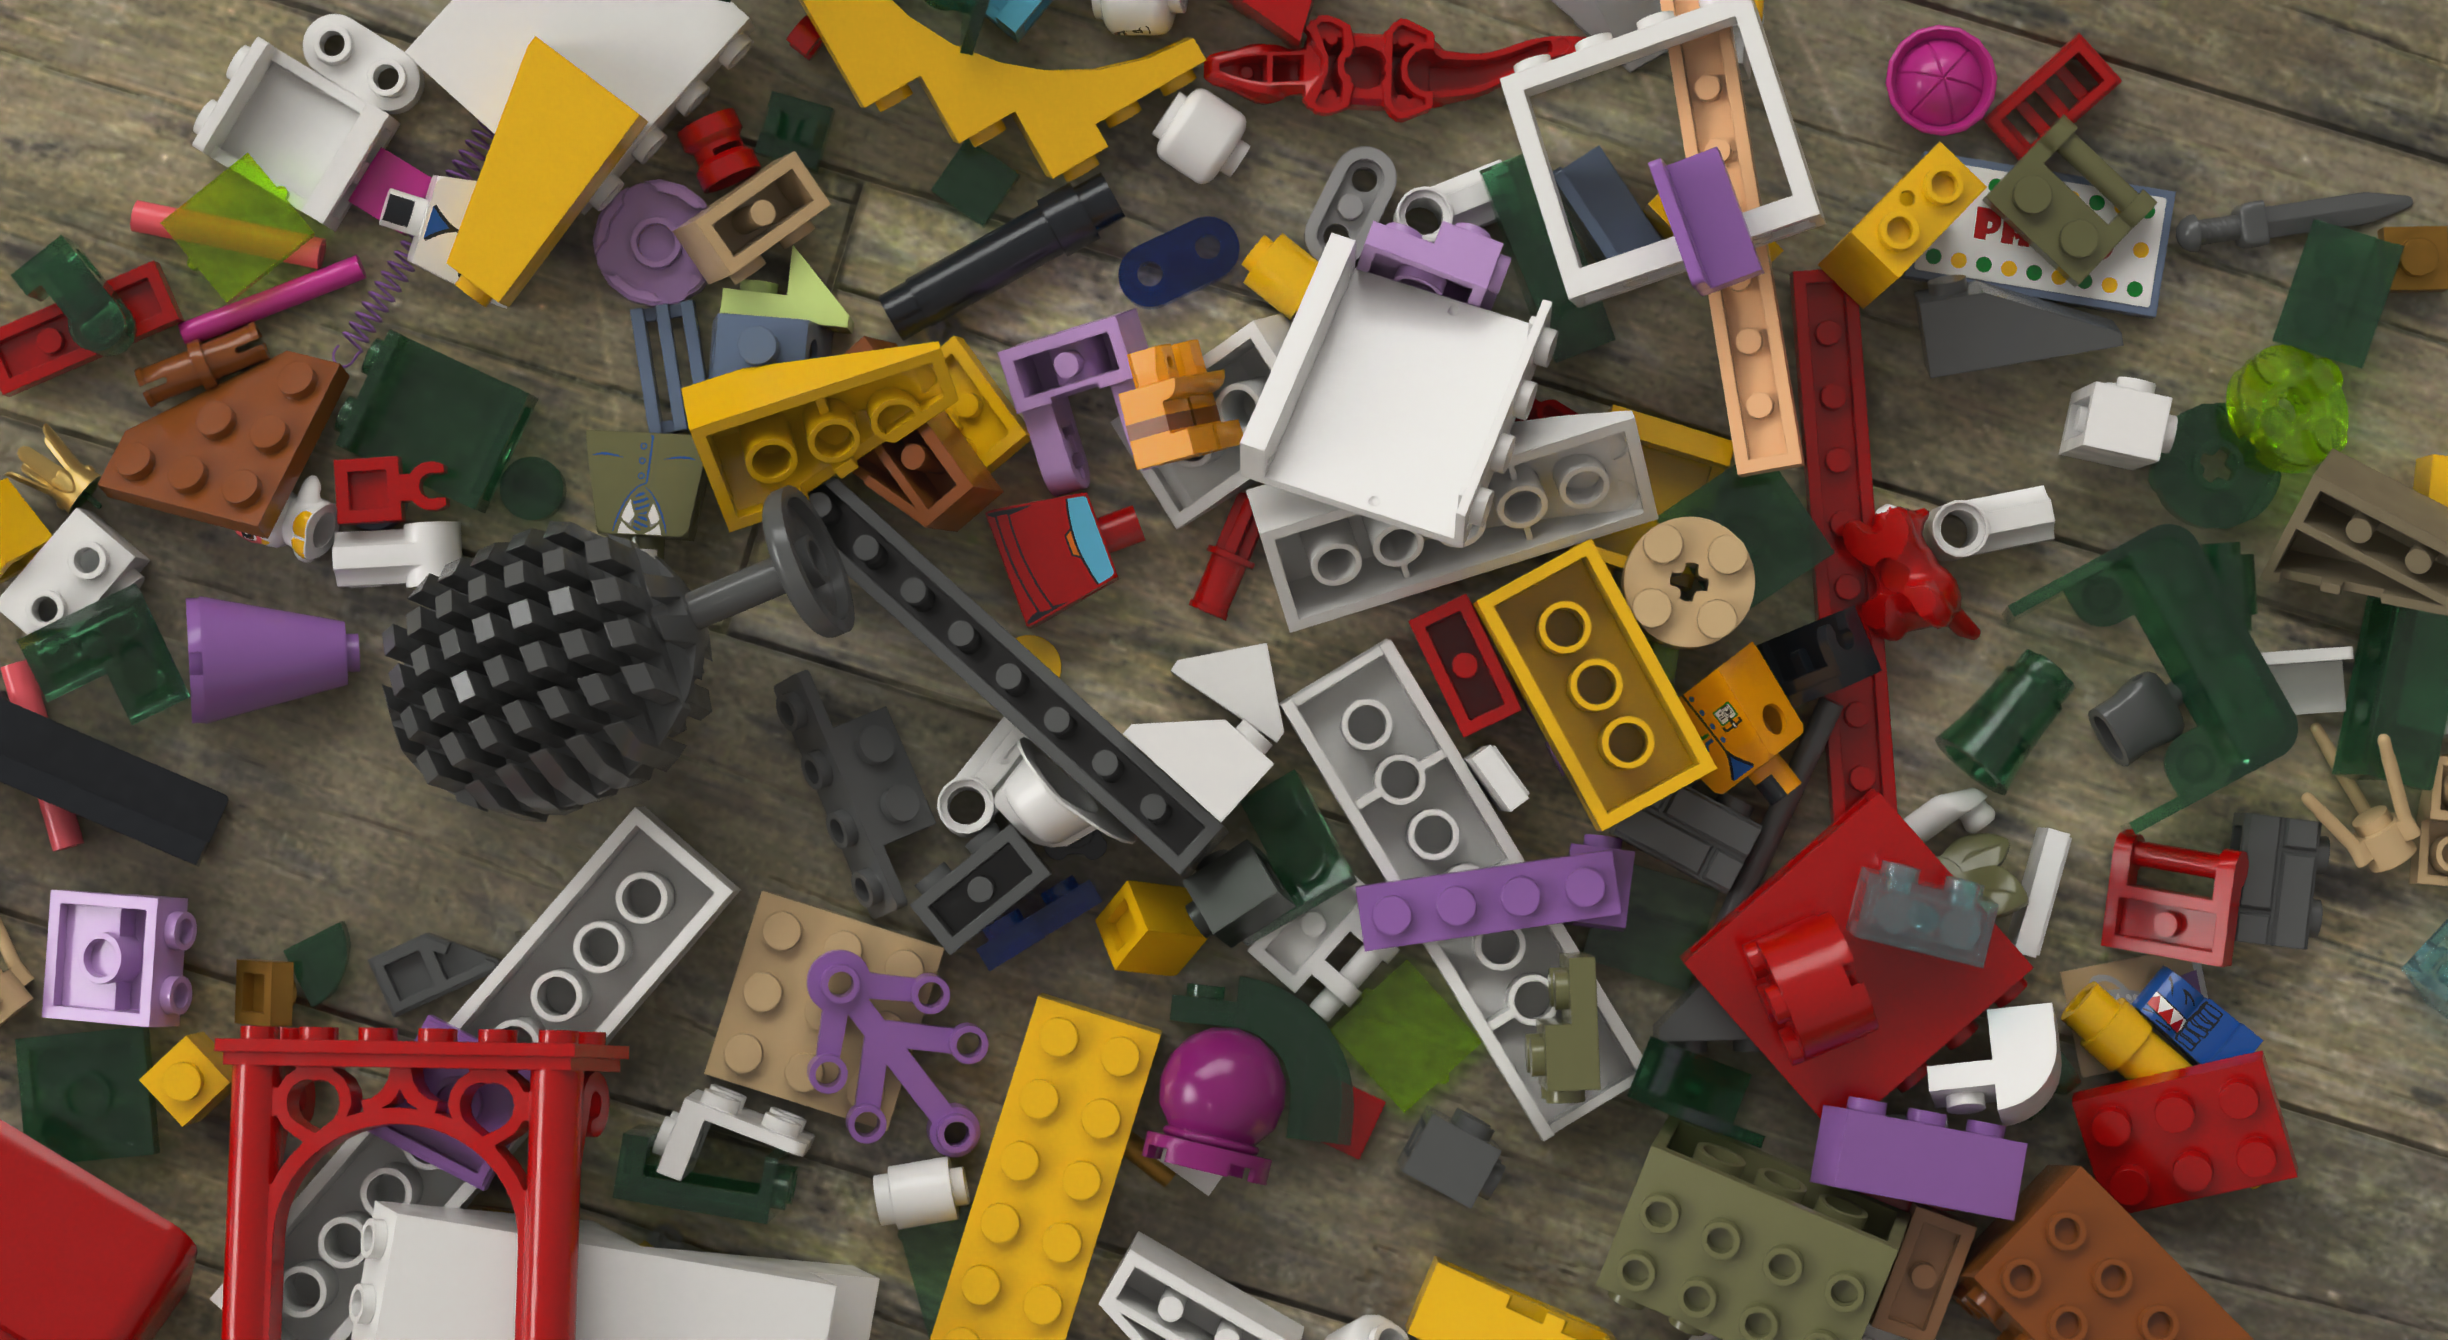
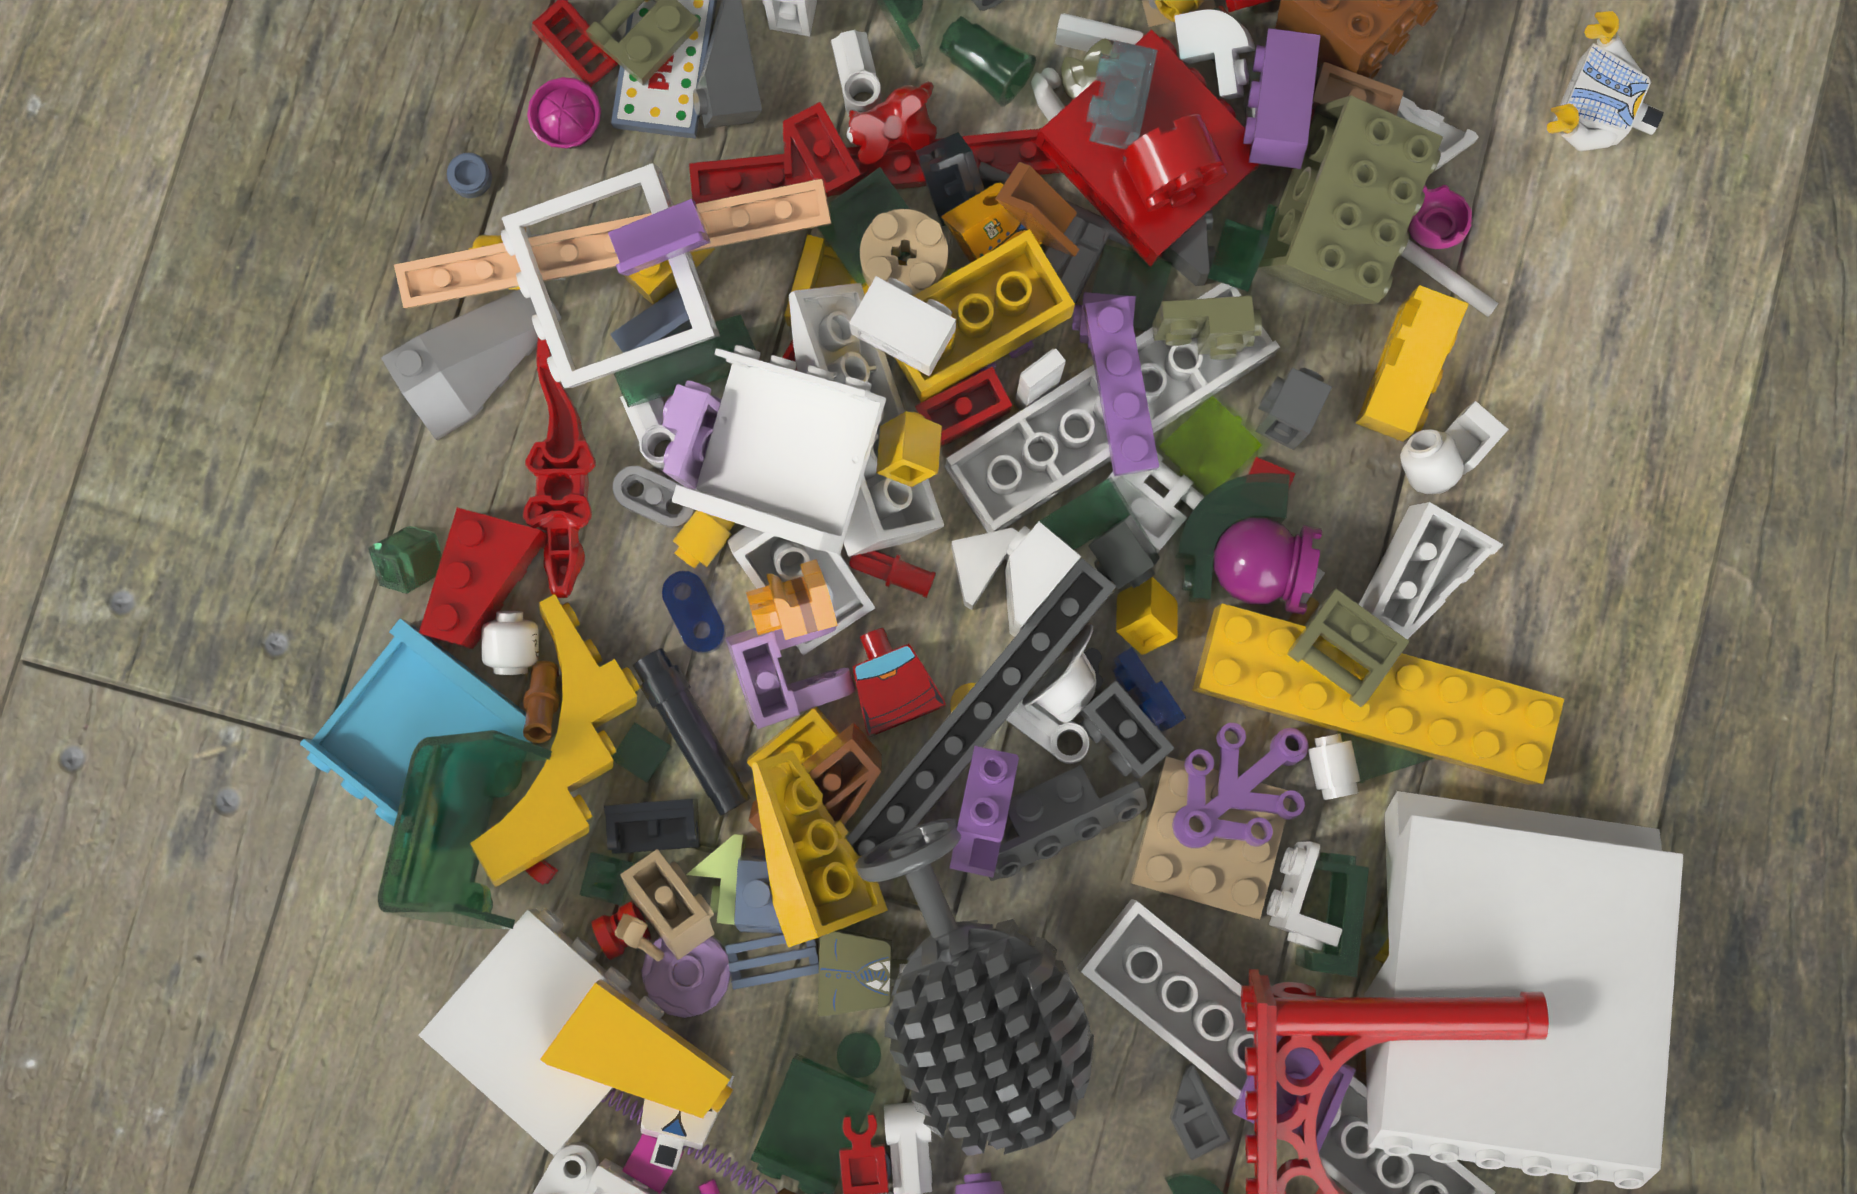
camera: 90 degrees left, 5 degrees down
(713, 167) = (631, 931): none -> tan hand
(864, 674) = (984, 811): none -> medium lavender panel
(868, 198) = (652, 826): none -> black hinge
(1049, 39) = (541, 702): none -> dark orange pin
(1103, 1225) = (1355, 634): none -> olive plate
(1201, 136) = (607, 597): white head -> none
(1398, 582) = (909, 449): none -> yellow brick
(1570, 575) = (903, 324): none -> white brick
(1757, 784) = (1038, 208): none -> dark orange panel
(1858, 456) = (817, 151): none -> red wing
(1902, 225) = (659, 118): yellow window -> none

